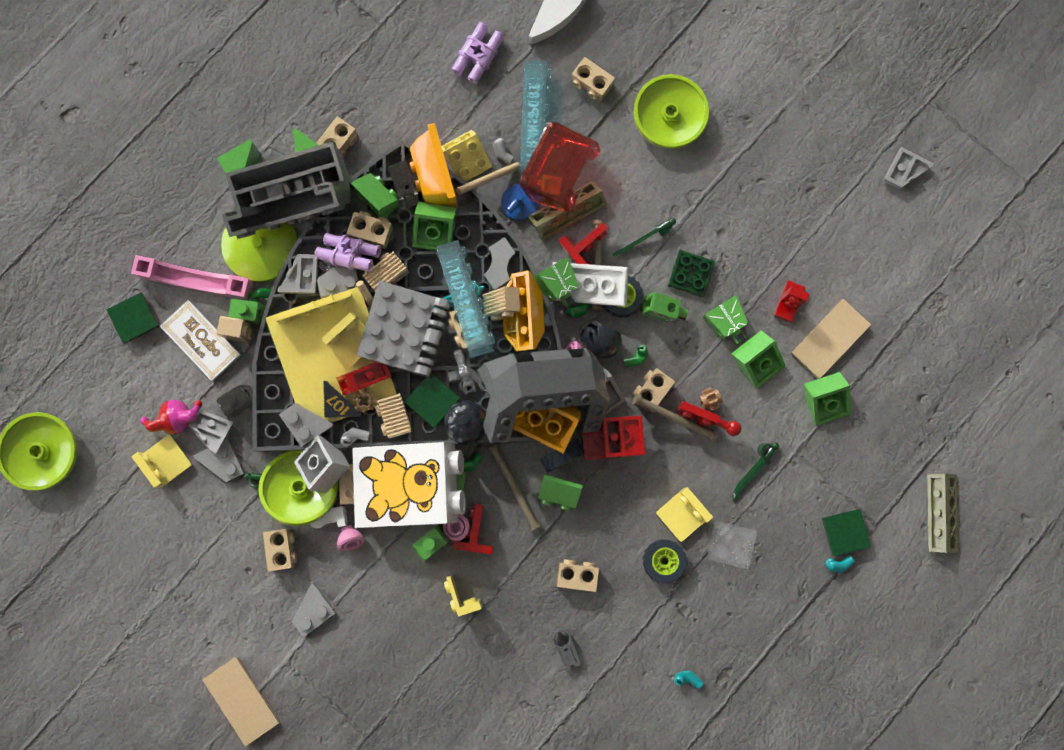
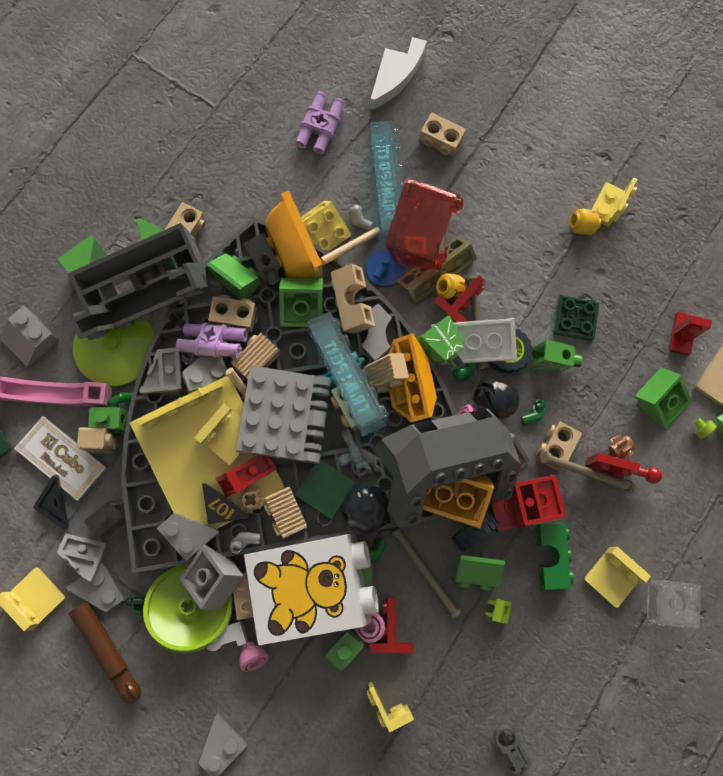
camera: 10 degrees left, 5 degrees down
(172, 417) = (38, 547): piece -> none
(181, 225) = (27, 336): none -> light grey slope
(188, 379) = (52, 503): none -> black tile
(222, 516) = (105, 652): none -> reddish brown piece
(273, 550) = (168, 682): tan brick -> none
(477, 216) = (347, 283): none -> tan arch
(576, 228) = (450, 286): none -> yellow head
(576, 529) = (501, 611): none -> lime tile
(576, 581) = (511, 669): tan brick -> none
(634, 471) = (558, 573): none -> green arch
(662, 228) = (538, 275): dark green sword -> none
(671, 111) = (528, 156): lime dish -> none
(675, 565) = (615, 634): black wheel -> none
(688, 677) = (650, 761): teal arm -> none
(715, 182) = (585, 222): none -> yellow head
(728, 320) = (624, 361): bright green torso -> none
(743, 167) = (613, 202): none -> light yellow bracket
(756, 467) = (688, 505): dark green sword -> none
(790, 391) = (704, 428): none -> lime tile

